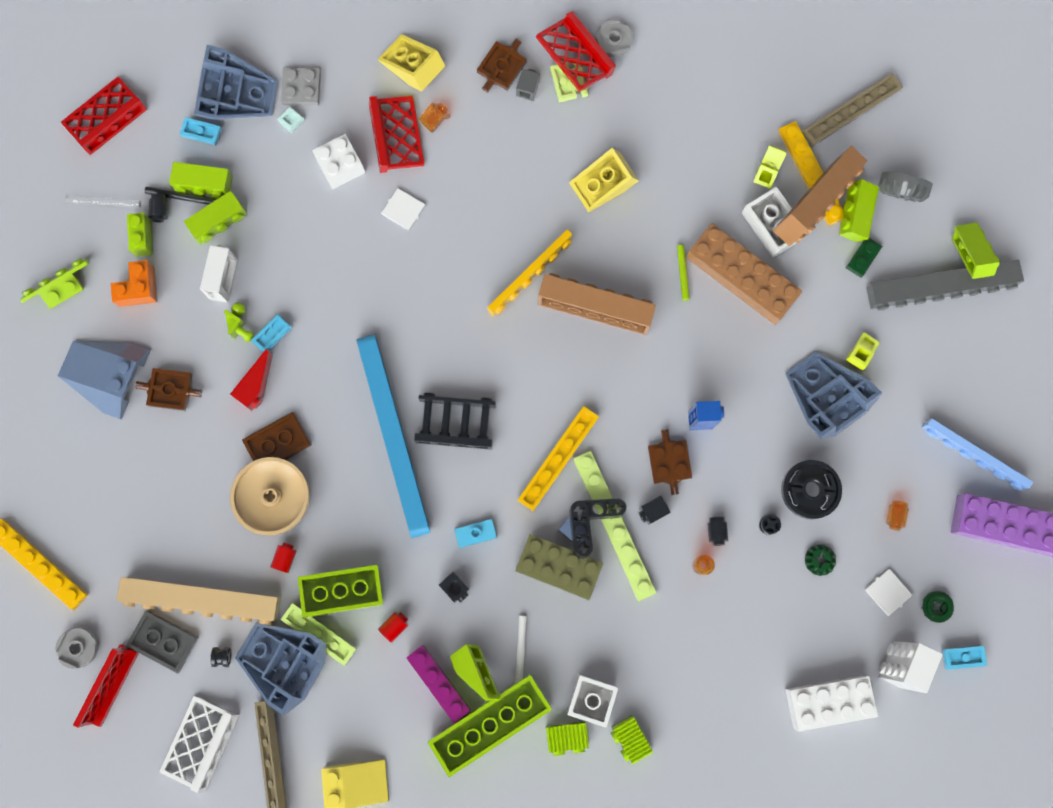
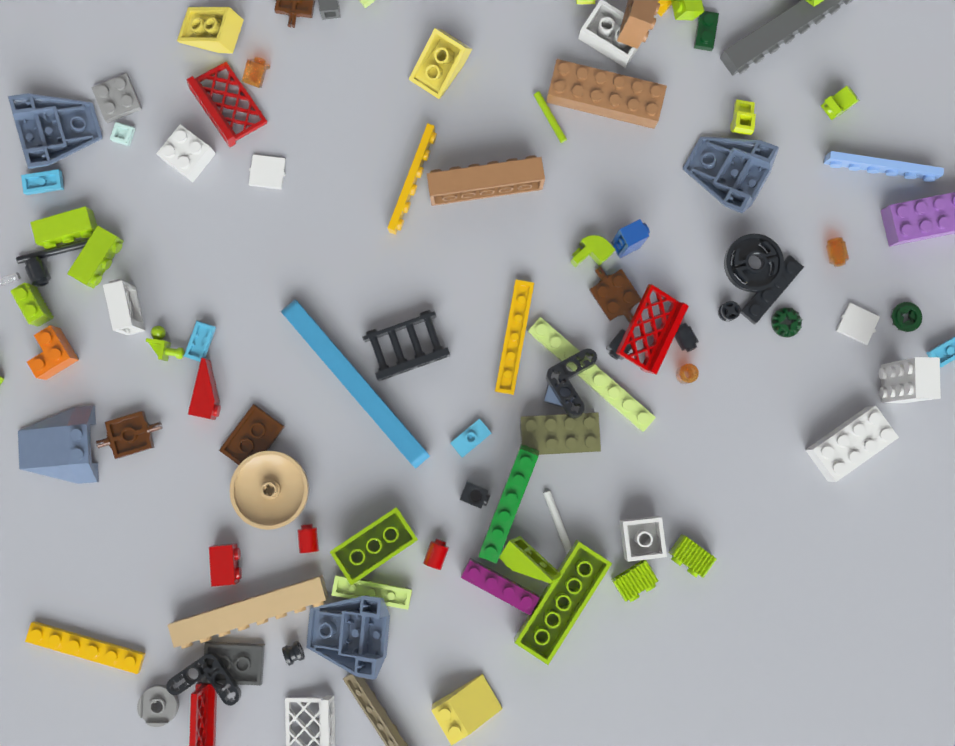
camera: 25 degrees left, 5 degrees up
(138, 640) = (210, 673): none -> black beam
(197, 546) = (224, 564): none -> red brick
(481, 609) = (508, 503): none -> green brick
(670, 409) = (594, 246): none -> lime brick
(694, 522) = (662, 336): none -> red fence
(809, 528) = (764, 299): none -> black plate
(960, 377) = (840, 102): none -> lime brick

